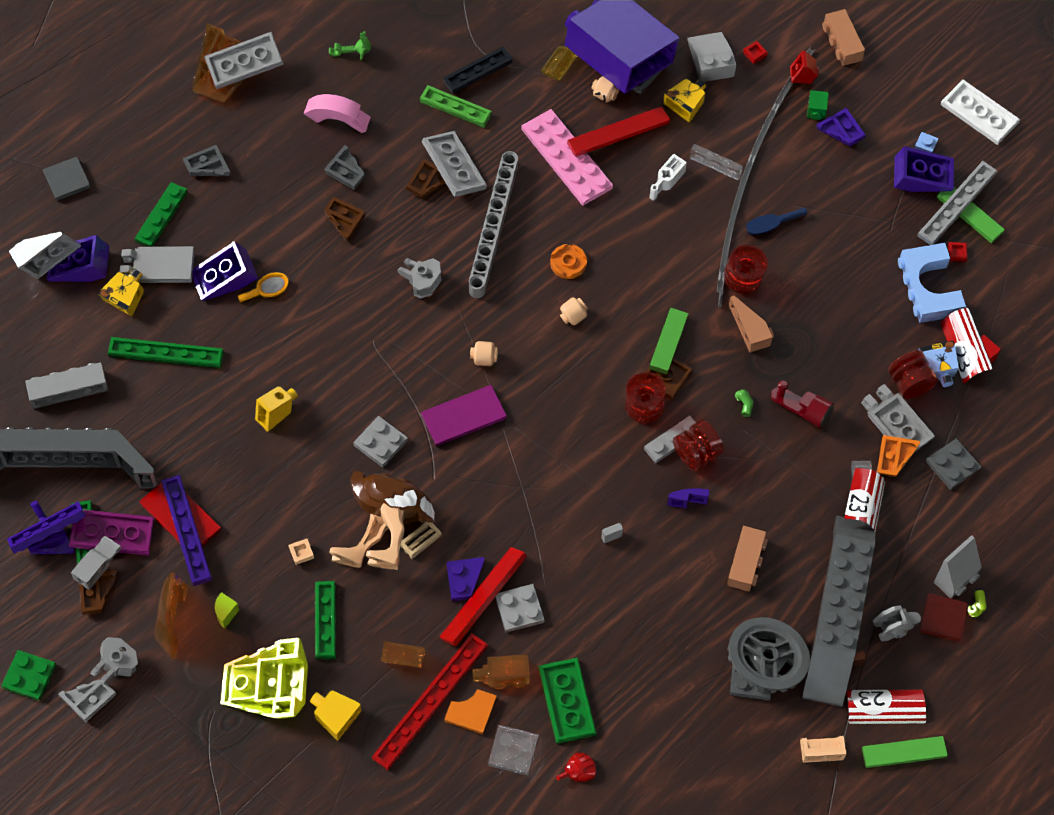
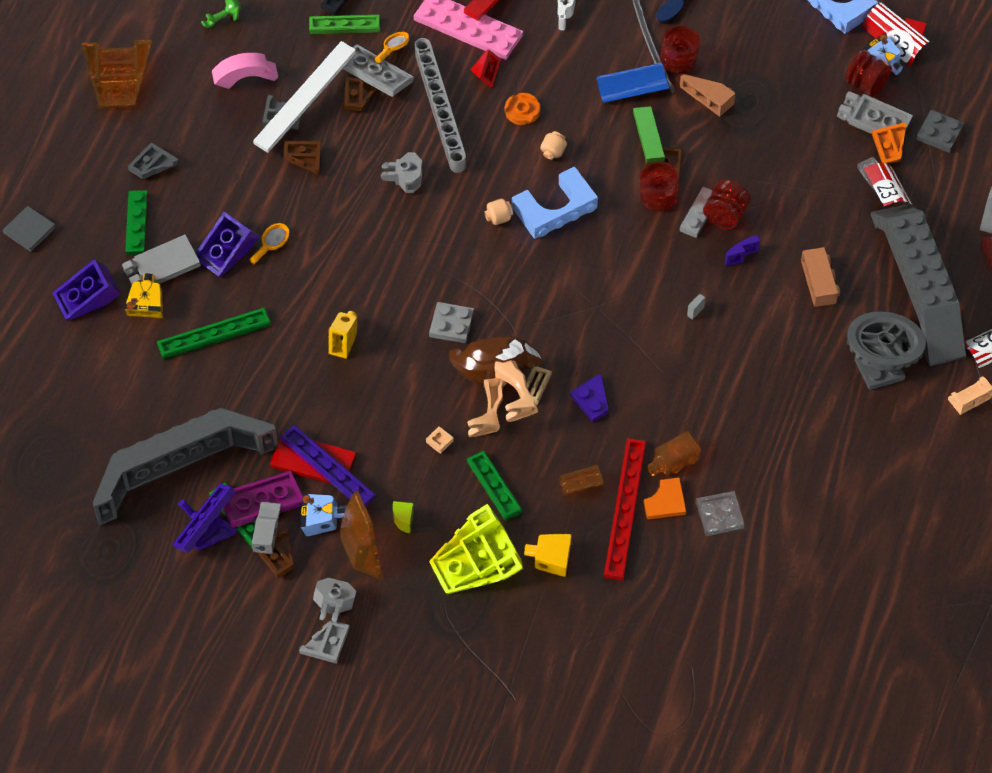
camera: 25 degrees left, 5 degrees down
(28, 675) = (261, 649): green plate -> none
(42, 253) = (54, 294): light grey slope -> none
(66, 385) = (142, 397): light grey brick -> none
(150, 571) = (319, 514): none -> light blue torso
(244, 60) = (134, 60): light grey tile -> none
(374, 161) = (304, 97): none -> white tile
(463, 415) = (510, 270): magenta tile -> none
(483, 596) = (619, 405): red tile -> none
(486, 144) = (392, 43): none -> light orange piece
(519, 381) = (541, 220): none -> light blue arch
(519, 608) = (654, 401): light grey plate -> none
(558, 207) = (487, 67): none -> red slope
(567, 700) = (739, 455): green tile -> none
(579, 768) = (783, 502): red piece -> none
(685, 282) = (632, 82): none -> blue sticker
(746, 399) = (744, 155): bright green arm -> none
(811, 407) = (801, 135): dark red piece -> none
(895, 622) = (970, 271): light grey hinge -> none

